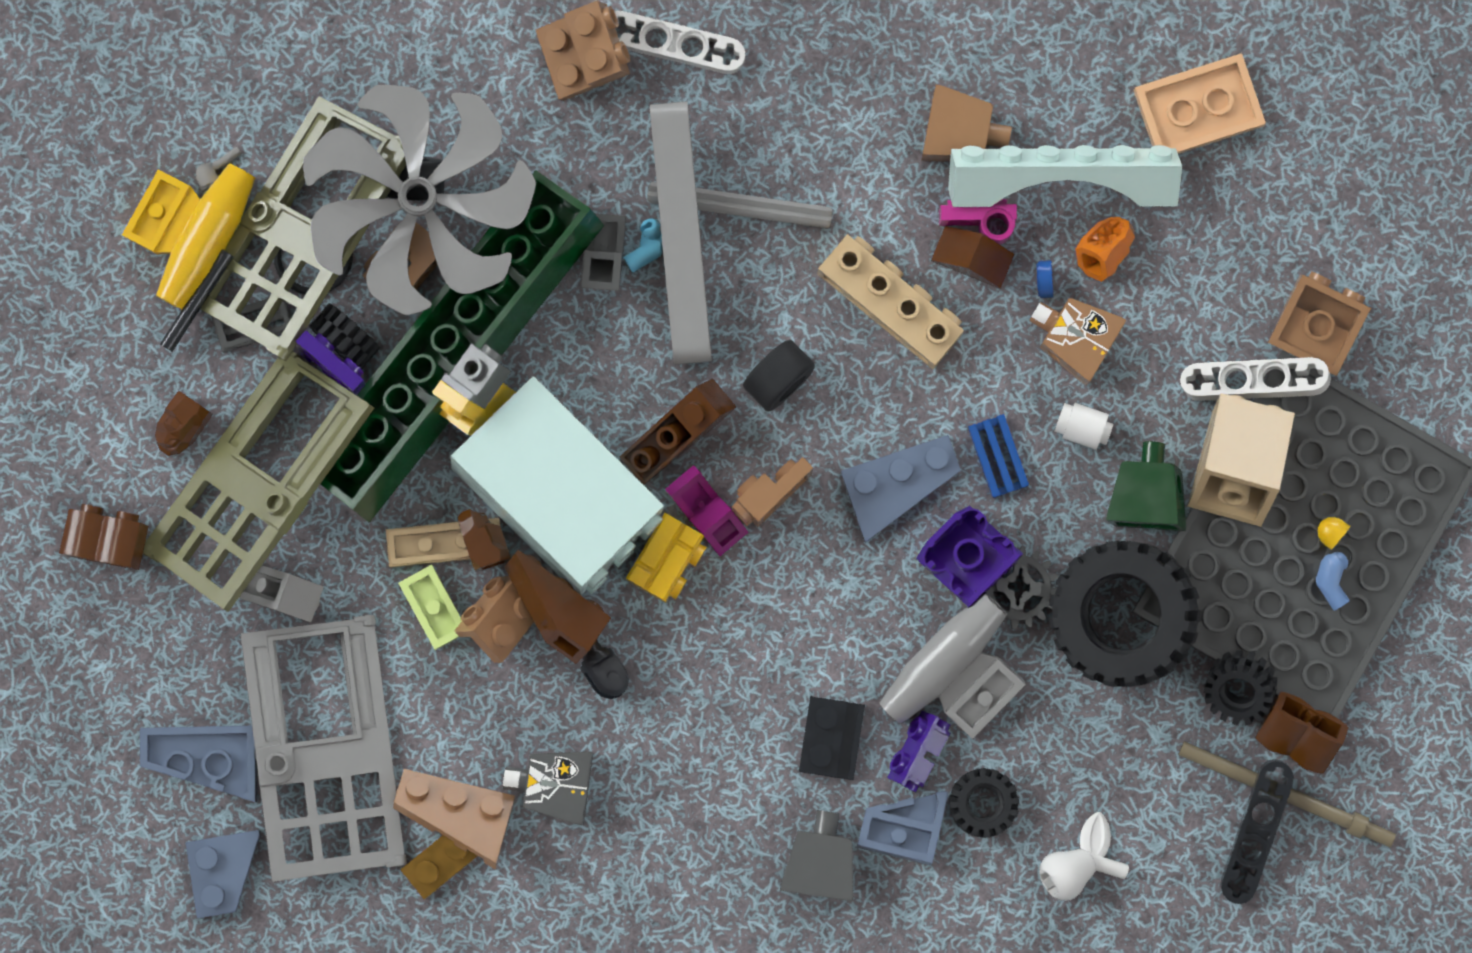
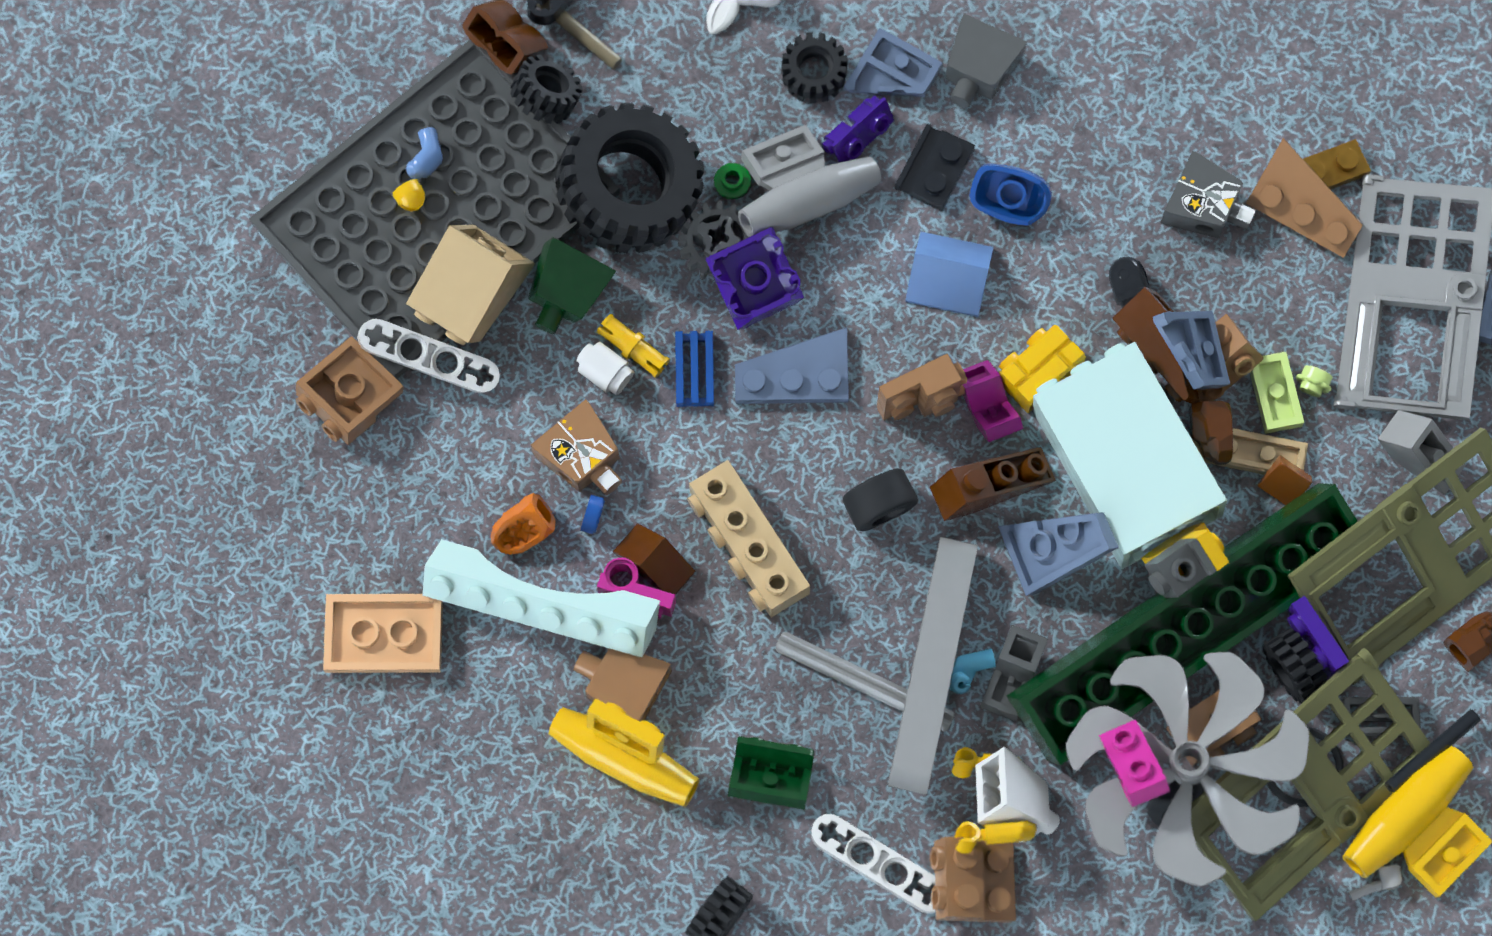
camera: 160 degrees left, 10 degrees down
(399, 631) = (1314, 381): none -> yellowish green plate
(400, 520) = (1285, 481): none -> dark orange slope
(467, 172) = (1134, 763): none -> dark pink plate
(522, 606) = (1195, 346): none -> sand blue wing
(573, 128) = (1009, 800): none -> white torso
(600, 377) = (1056, 548): none -> sand blue wing
(748, 726) = (1010, 193): none -> blue piece
(783, 632) = (949, 274): none -> medium blue slope
(797, 89) = (771, 772): none -> dark green bracket
(937, 62) = (624, 750): none -> yellow plate
(1013, 657) = (732, 191): none -> green plate
(1064, 457) = (633, 345): none -> yellow pin

